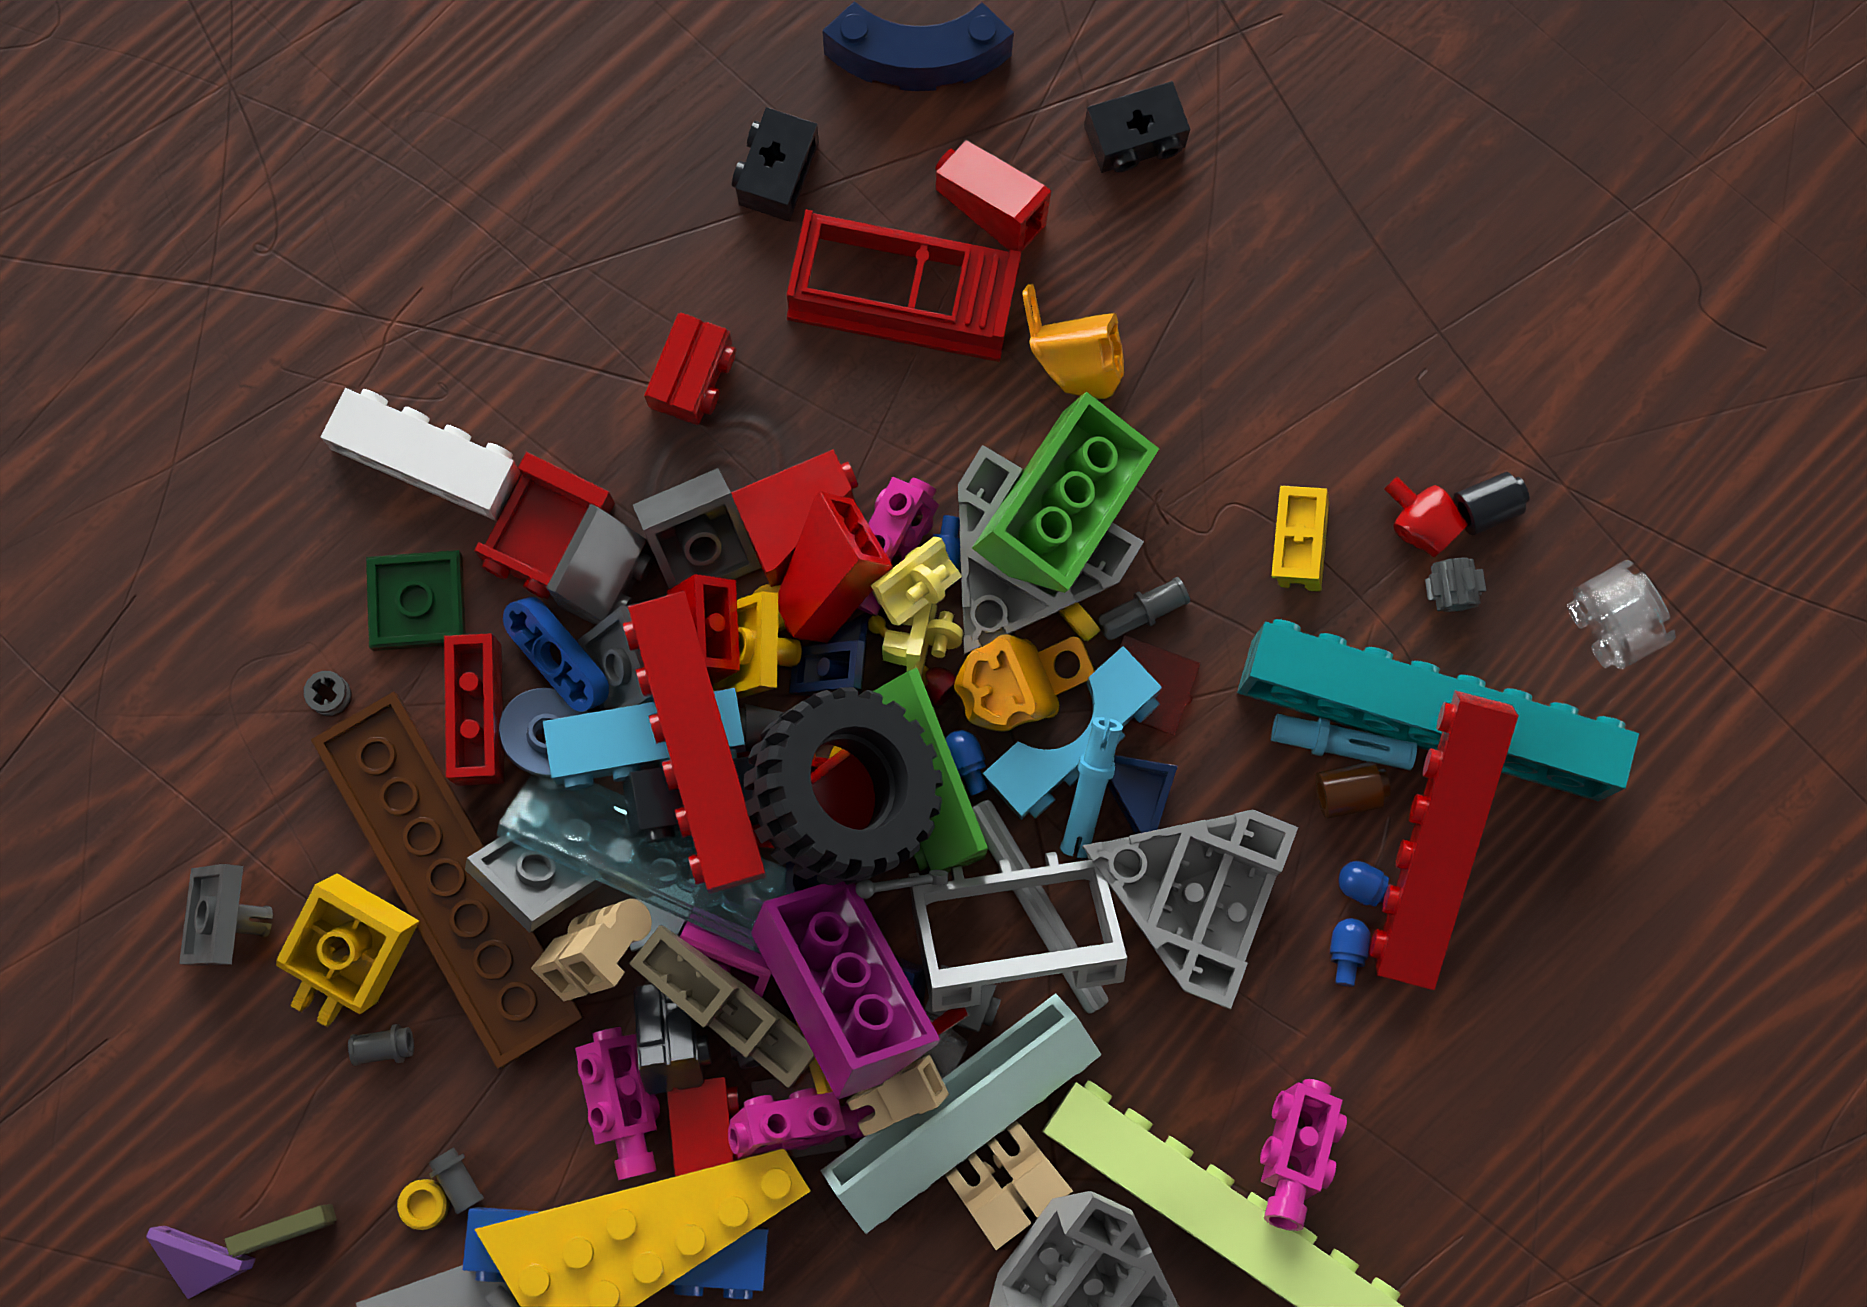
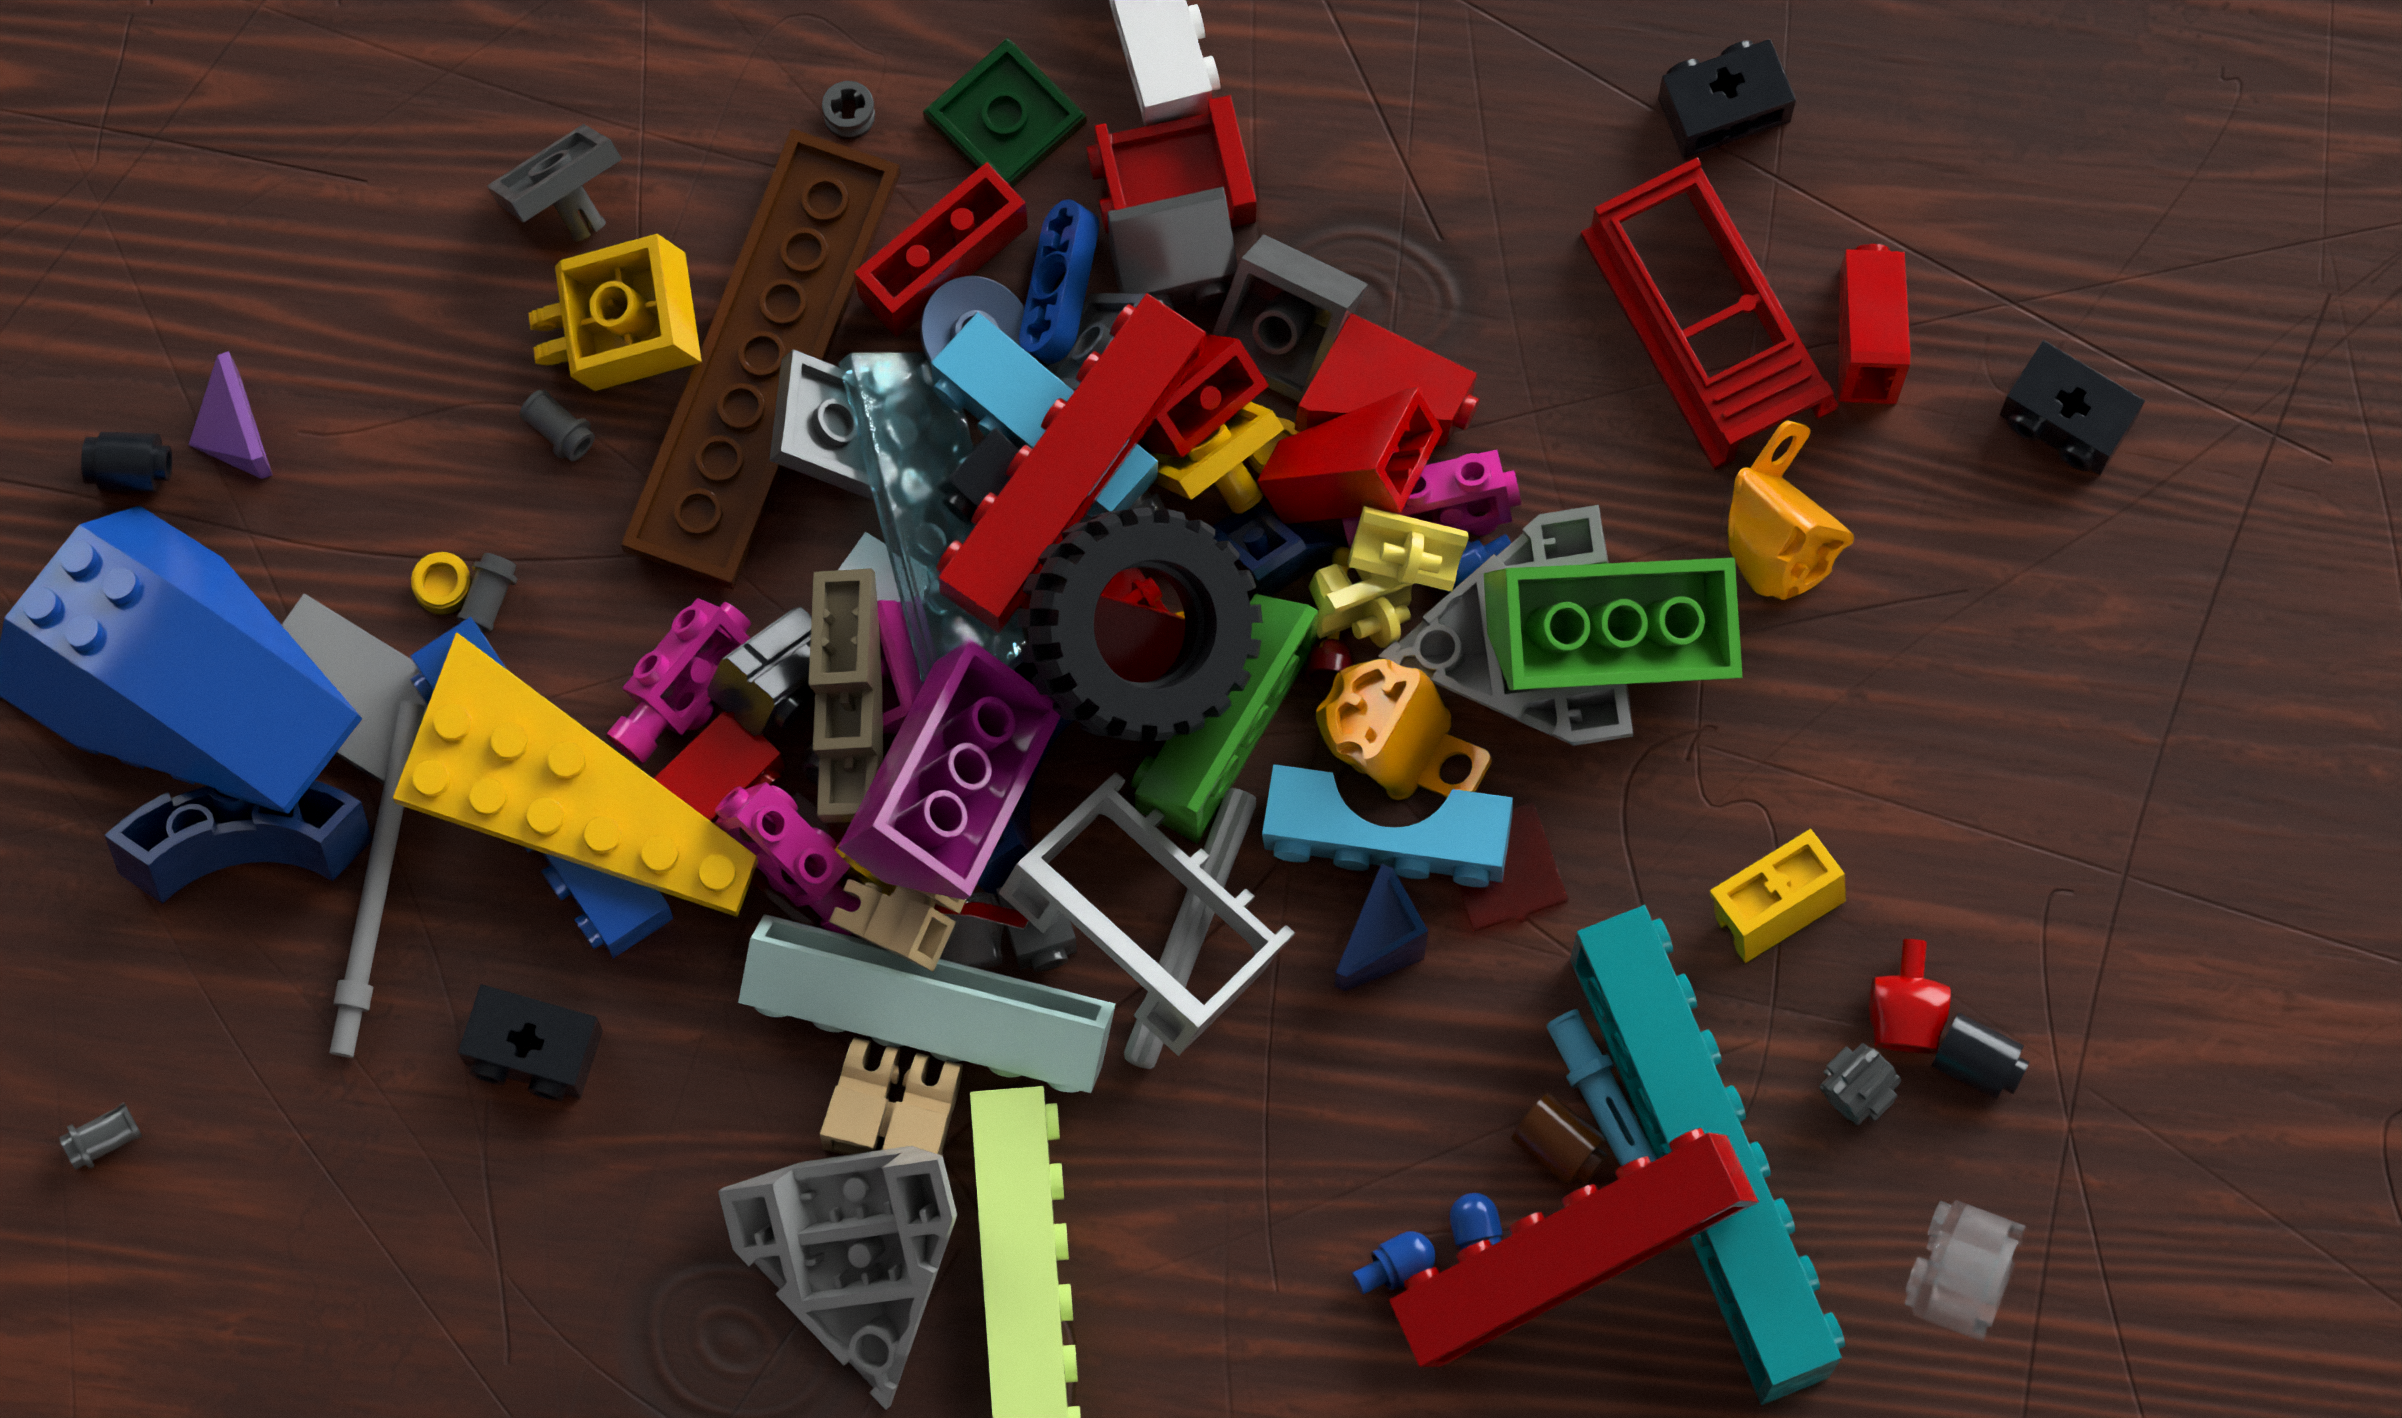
camera: 55 degrees right, 5 degrees down
(280, 1230) = (317, 472): olive tile -> none
(590, 951) = (785, 532): tan legs -> none
(690, 368) = (1446, 182): red brick -> none
(866, 888) = (1063, 730): dark grey hinge -> none
(917, 55) = (1958, 143): dark blue brick -> none
(968, 759) = (1277, 743): blue cylinder -> none
(1080, 621) = (1509, 745): yellow tile -> none
(1095, 771) = (1363, 866): medium azure pin -> none
(1143, 609) = (1574, 799): dark grey axle -> none
(1199, 893) = (1327, 1064): light grey wedge -> none
(1304, 1148) = (1155, 1351): dark pink brick -> none

